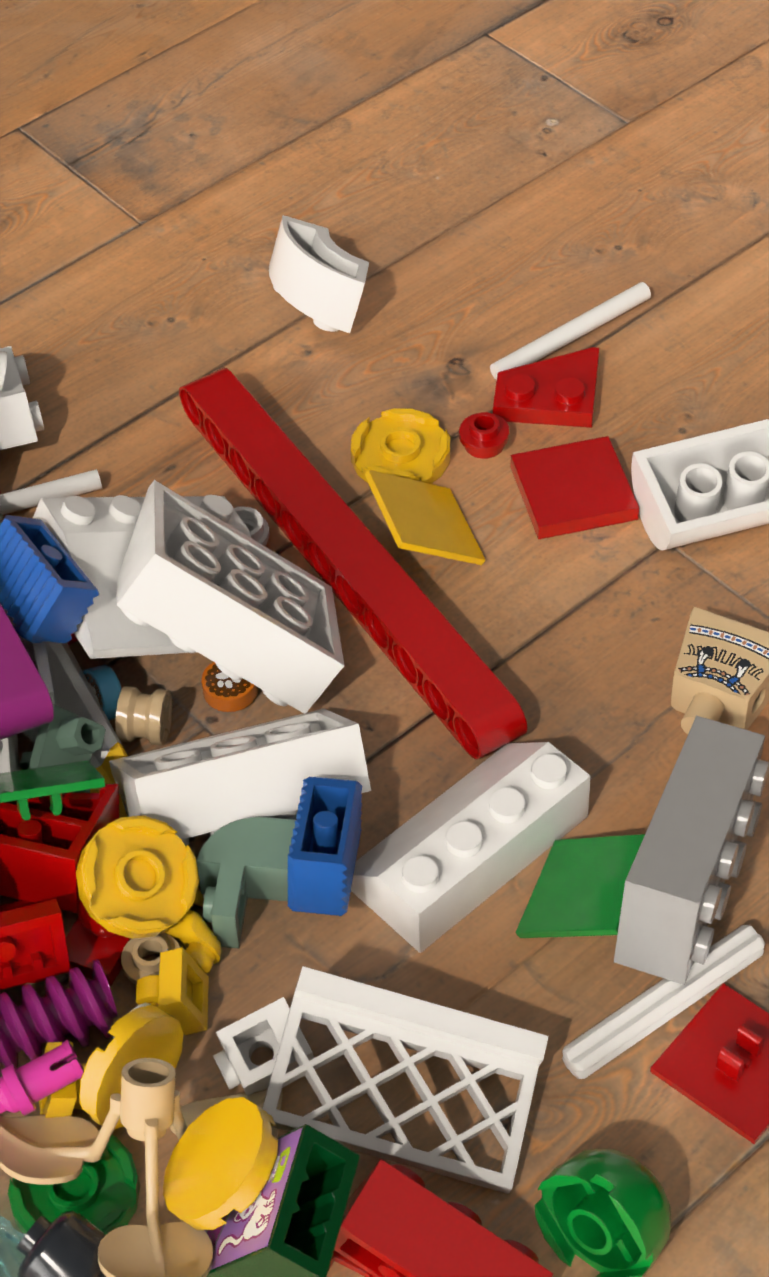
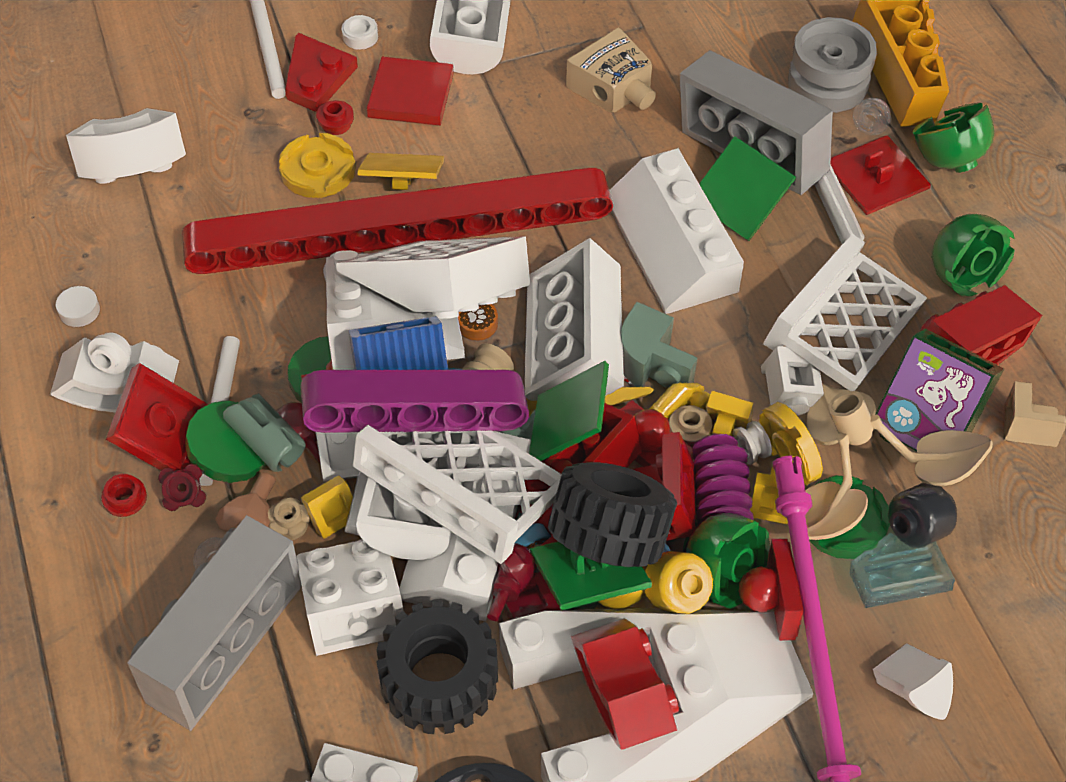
camera: 70 degrees left, 5 degrees up
(90, 340) = (77, 306): none -> white tile
(137, 877) = (651, 394): yellow tile -> none
(220, 1163) = (904, 398): yellow tile -> none
(324, 846) = (668, 289): blue brick -> none
(646, 404) = (360, 32): none -> white tile

